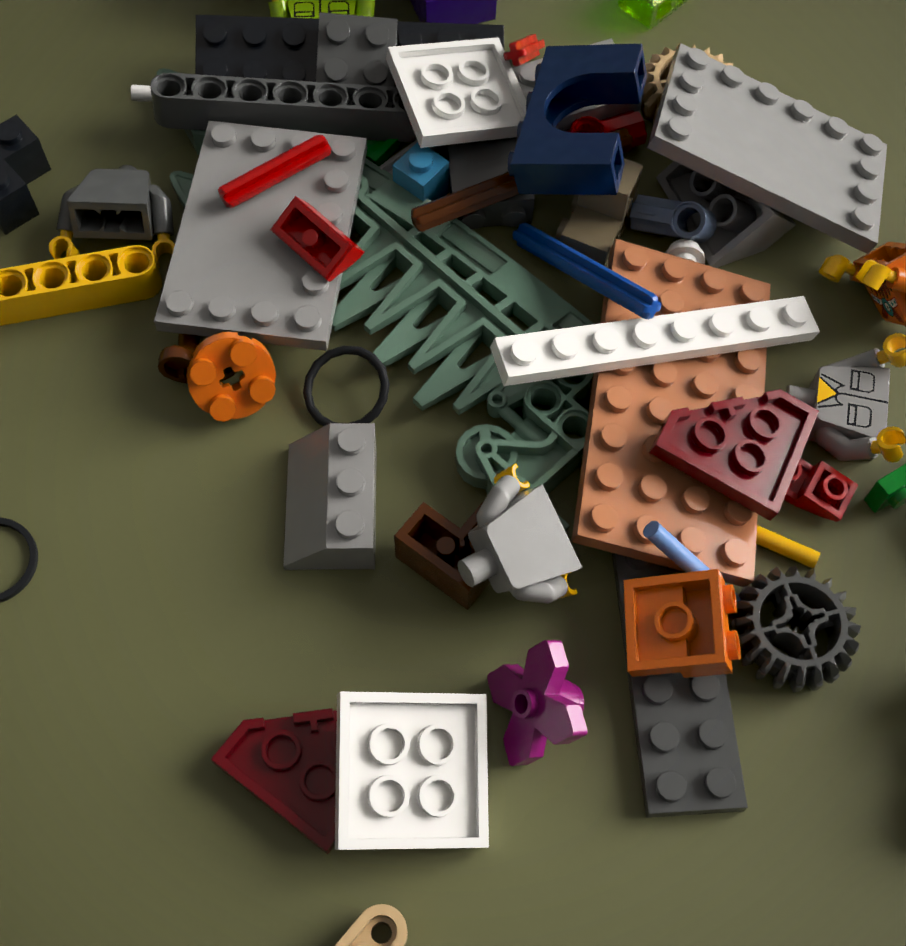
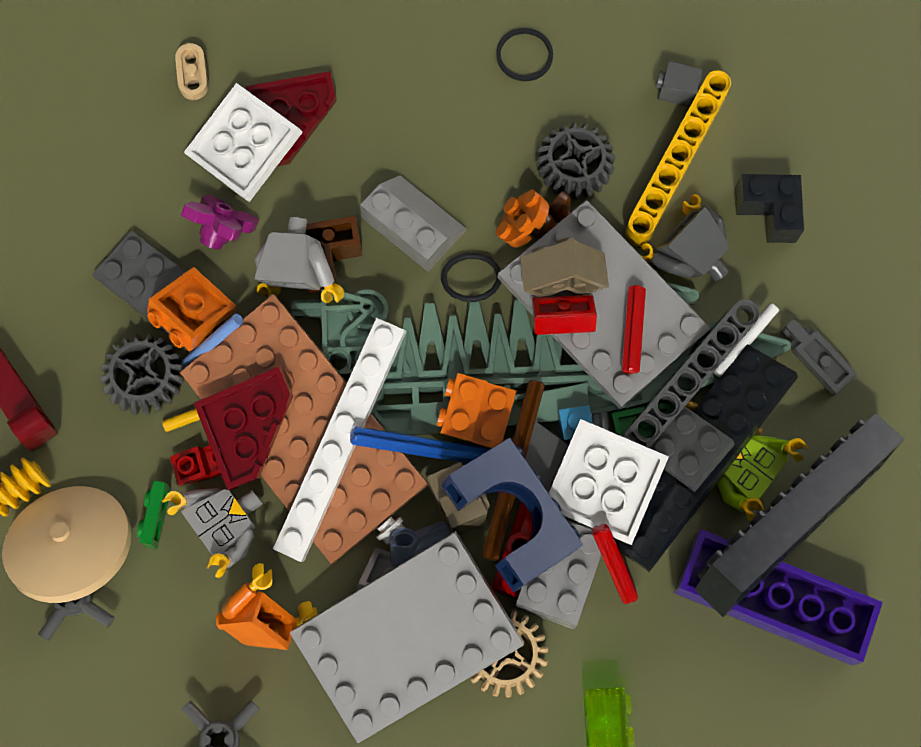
camera: 130 degrees right, 10 degrees up
(104, 403) = (593, 150): none -> dark grey gear
(151, 43) = (819, 357): none -> dark grey hinge
(276, 252) = (564, 267): none -> dark tan brick
(497, 259) = (476, 411): none -> orange plate

